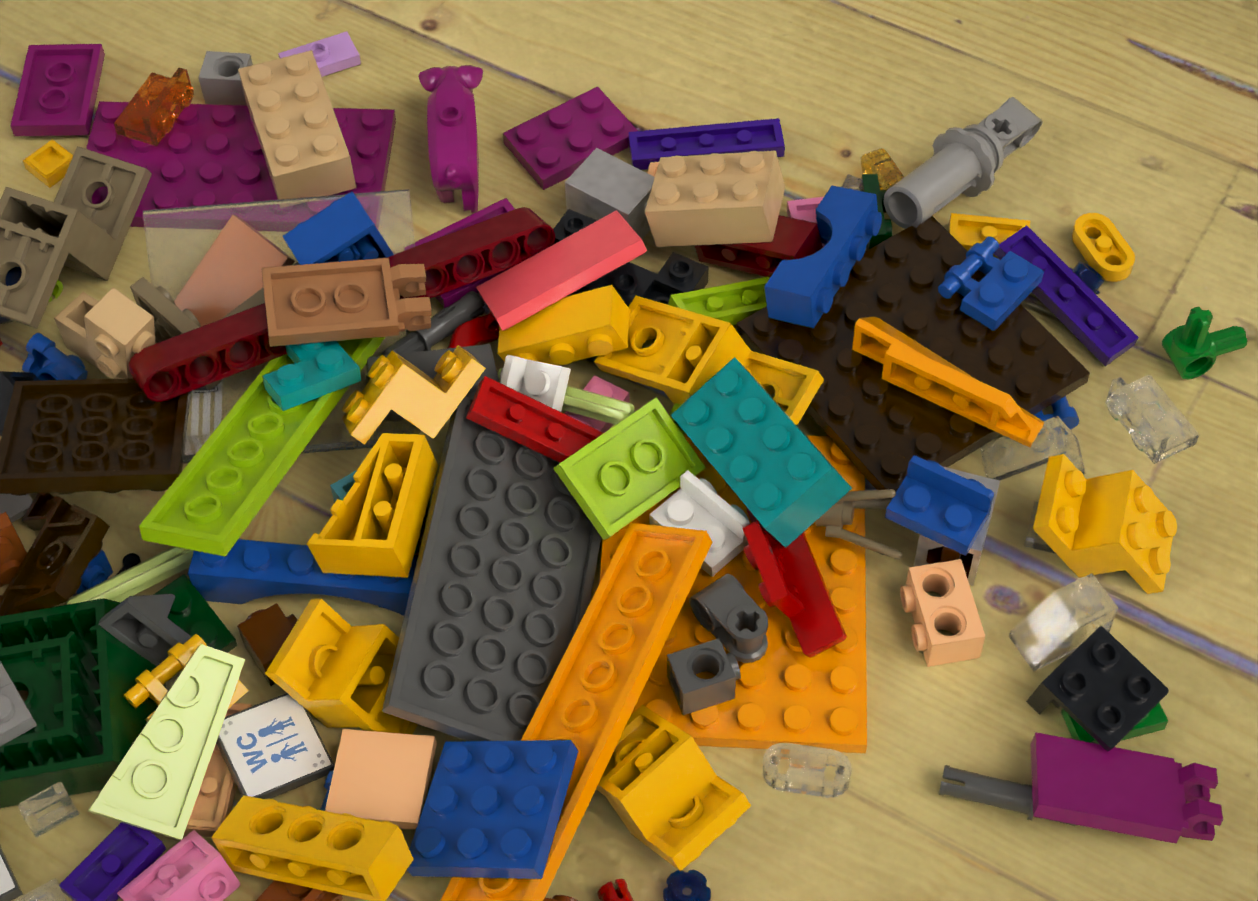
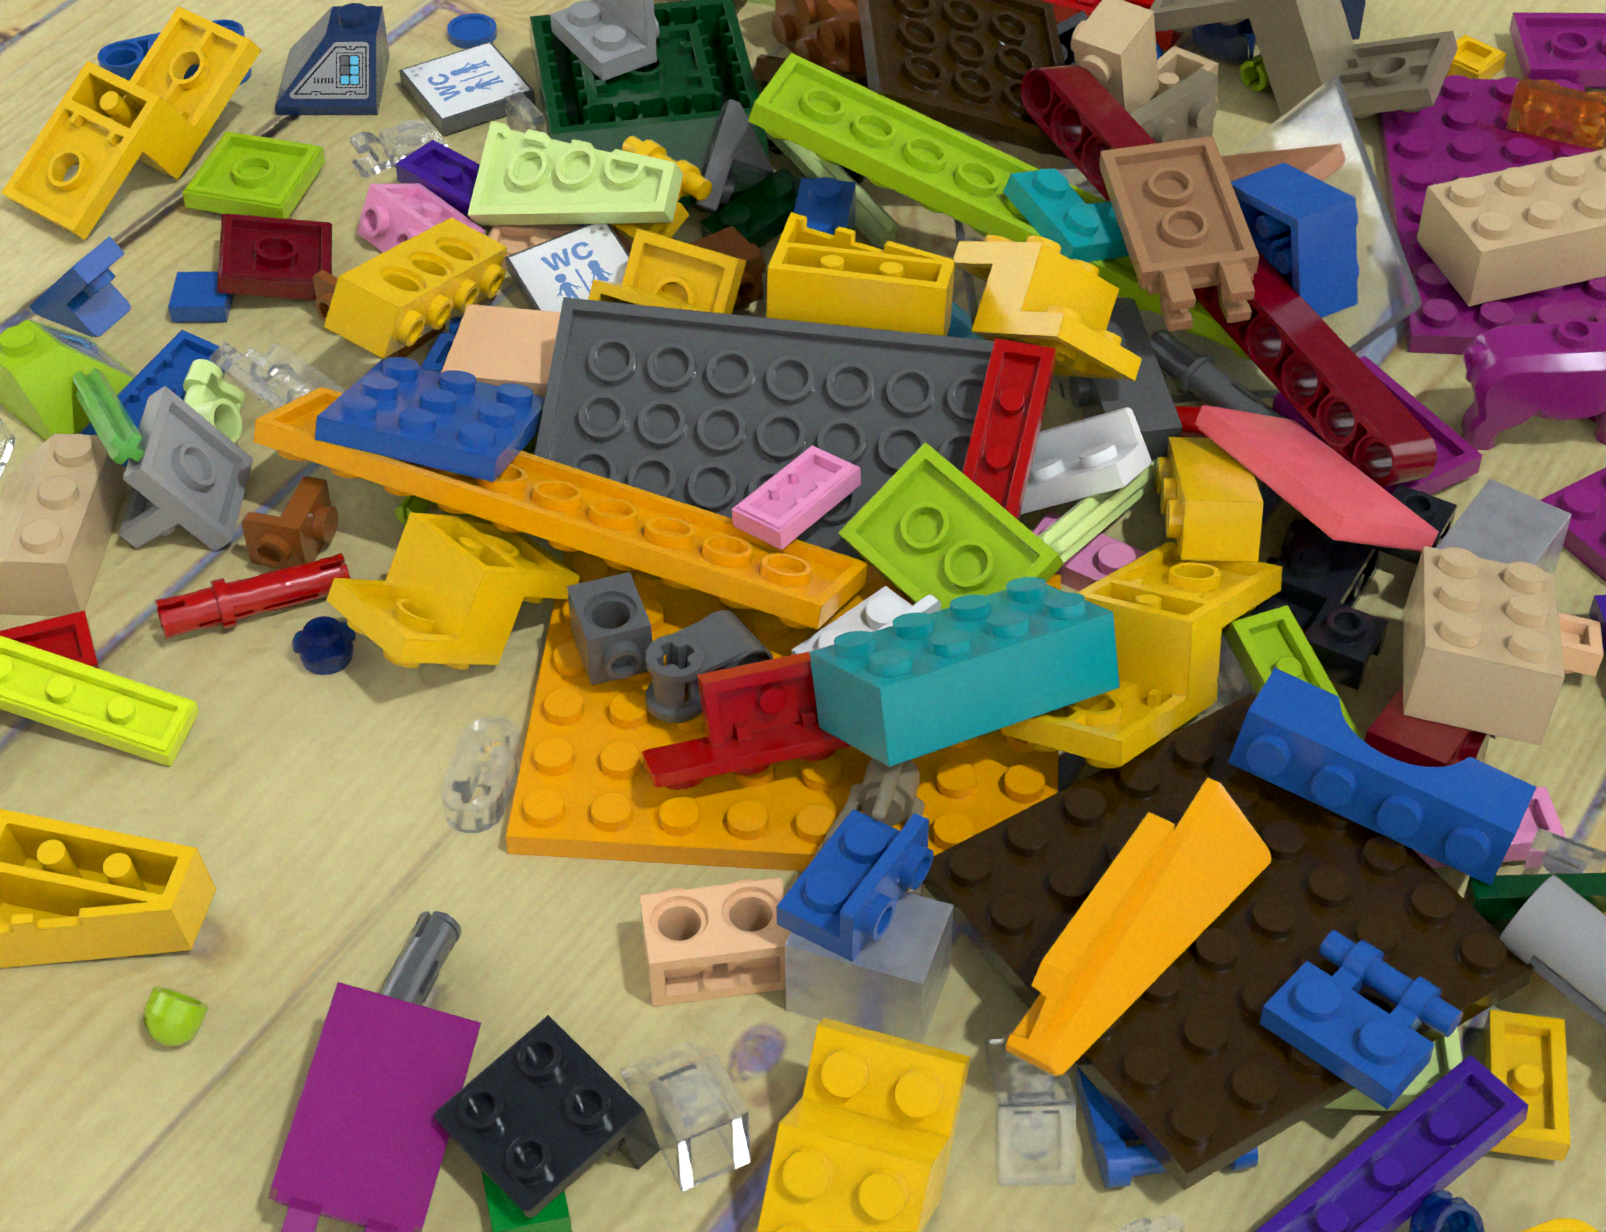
camera: 90 degrees right, 10 degrees down
(579, 559) = (796, 497): none -> bright pink plate

